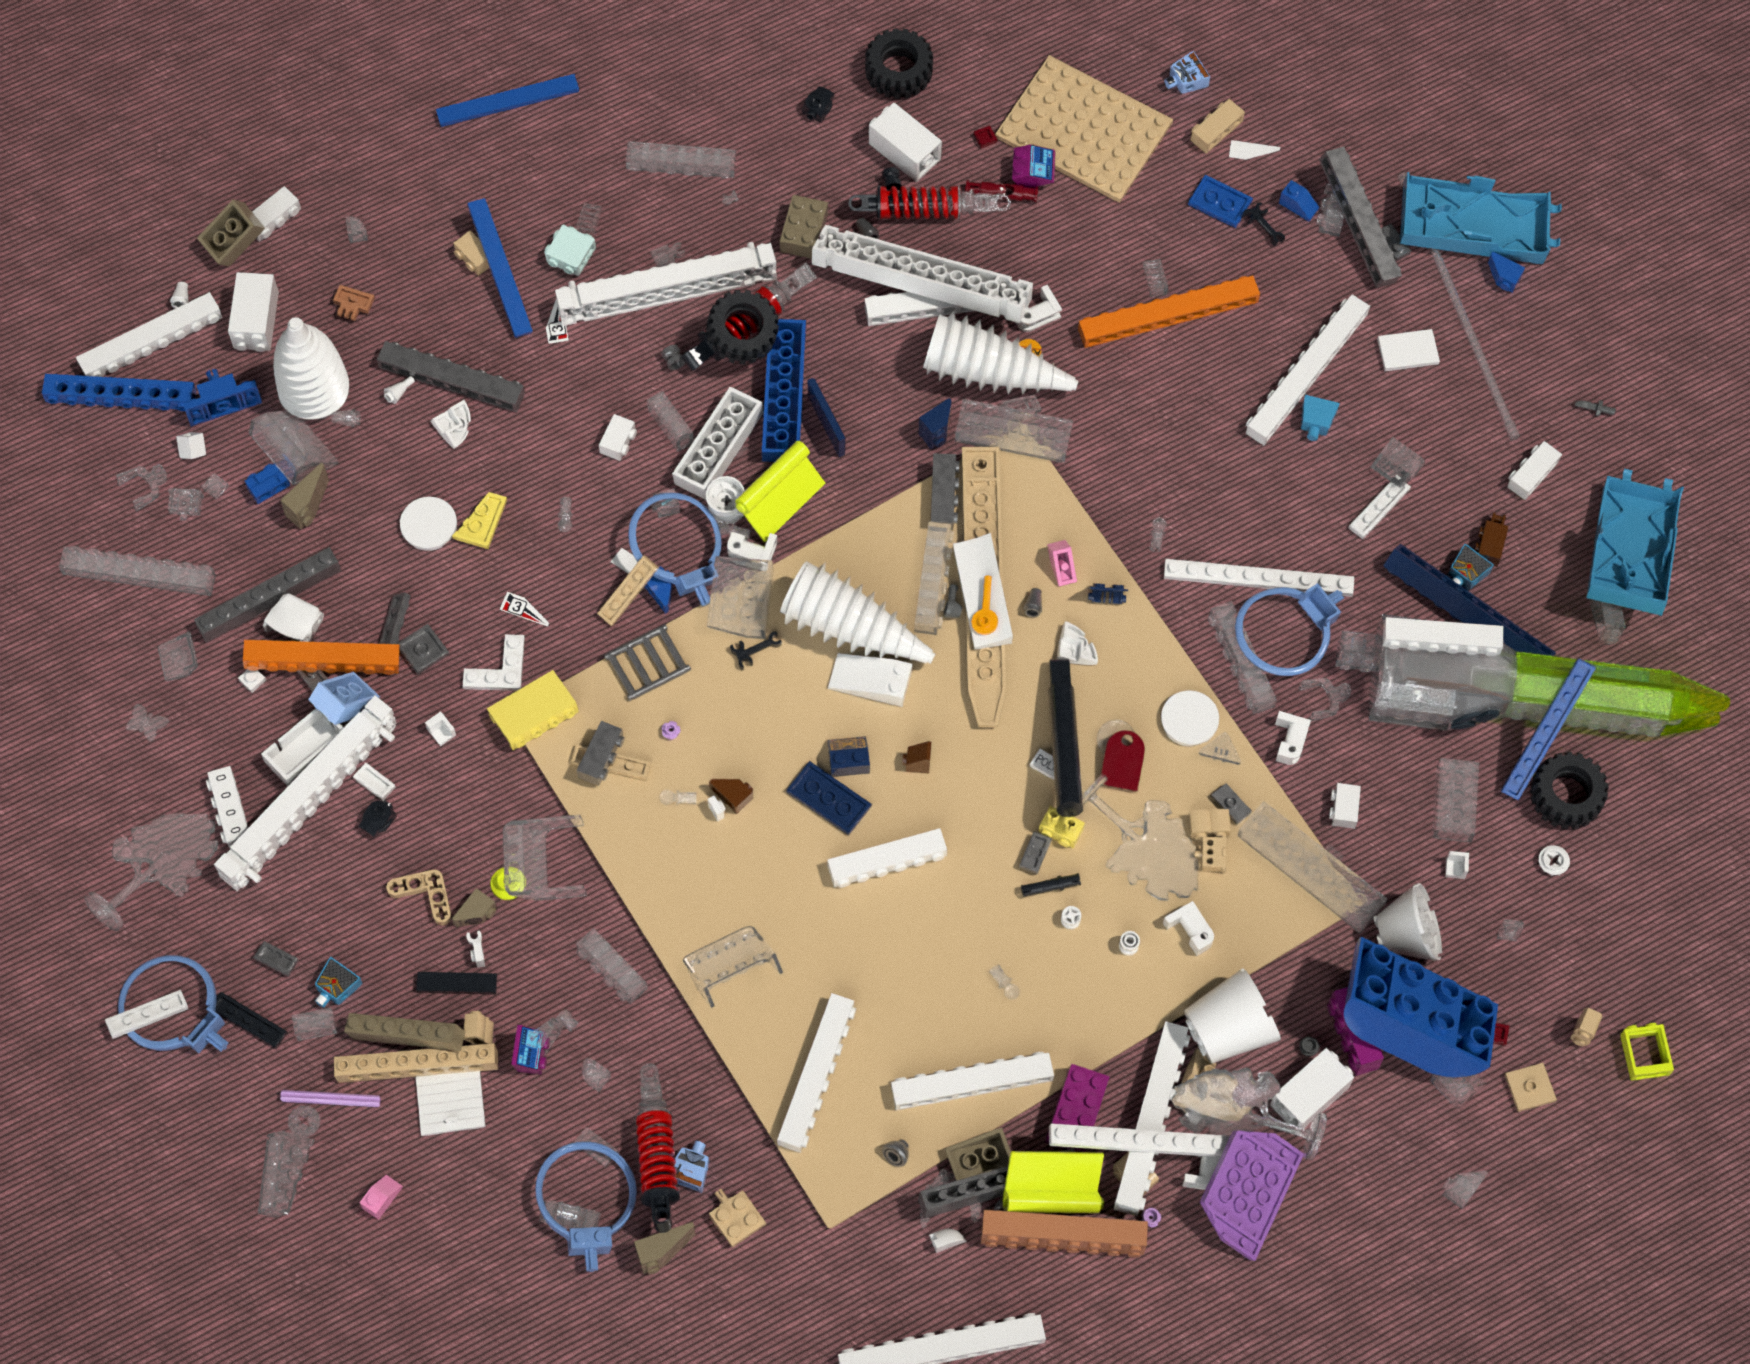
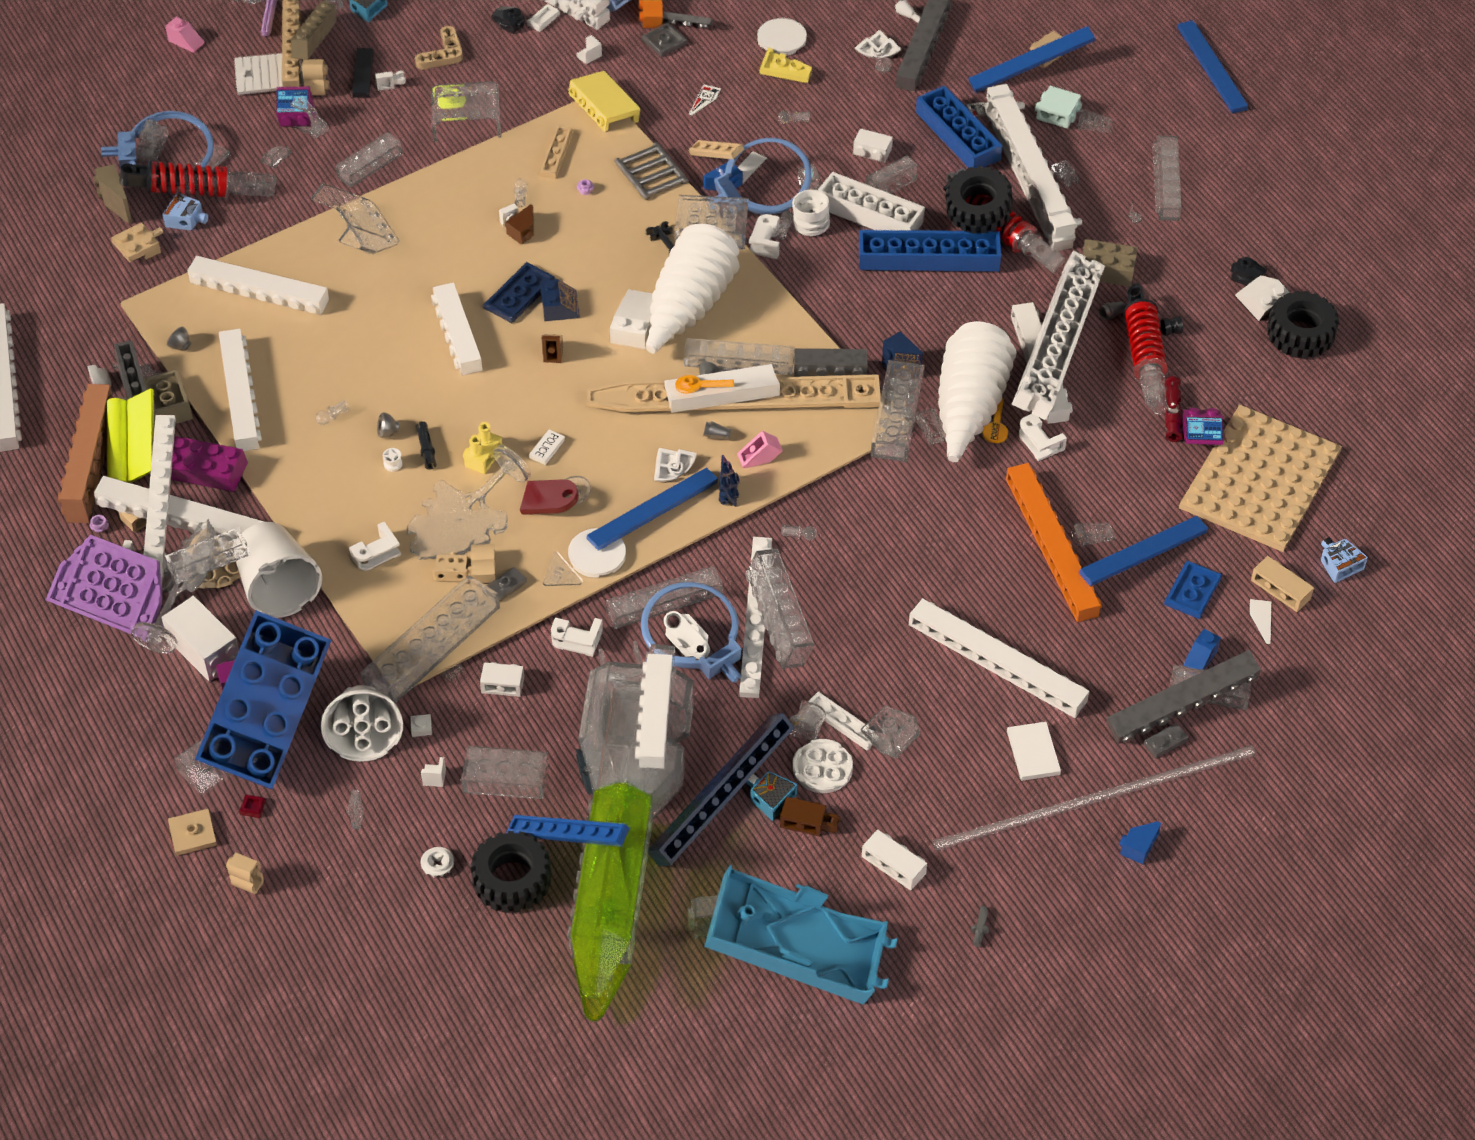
camera: 90 degrees right, 15 degrees down
(475, 910) = (425, 76): dark tan slope -> none
(482, 421) = (883, 65): none -> clear tile
(506, 679) = (640, 92): white plate -> none
(600, 349) = (958, 128): none -> blue brick
(600, 753) = (559, 136): flat silver brick -> none
(780, 491) = (820, 244): neon yellow door -> none
(826, 417) = (901, 277): dark blue tile -> none
(858, 93) = (1261, 295): none -> white slope
(904, 142) = (1211, 329): white brick -> none
(985, 136) = (1235, 398): dark red tile -> none
(1026, 925) = (386, 425): none -> flat silver brick
(1035, 853) = (457, 433): flat silver plate -> none
(1064, 740) = (568, 440): black piece -> none
(1128, 947) = (363, 501): white wheel -> none
(1137, 664) = (652, 509): none -> blue tile
(1184, 234) = (1143, 551): none -> blue tile
(1250, 1068) = (207, 555): none -> clear brick
(1257, 214) = (1179, 616): black bar -> none
(1268, 547) = (779, 608): none -> clear brick
(1292, 636) = (687, 635): none -> white piece
(1317, 416) = (942, 664): dark azure torso -> none
(1387, 533) = (808, 721): none -> clear hat
(1398, 881) = (421, 725): none -> white plate
(1430, 526) = (822, 766): none -> white tile
(1463, 1187) = (92, 767): clear slope -> none
(1476, 219) = (1202, 810): dark azure piece -> none
(1650, 1071) = (212, 919): neon yellow window -> none

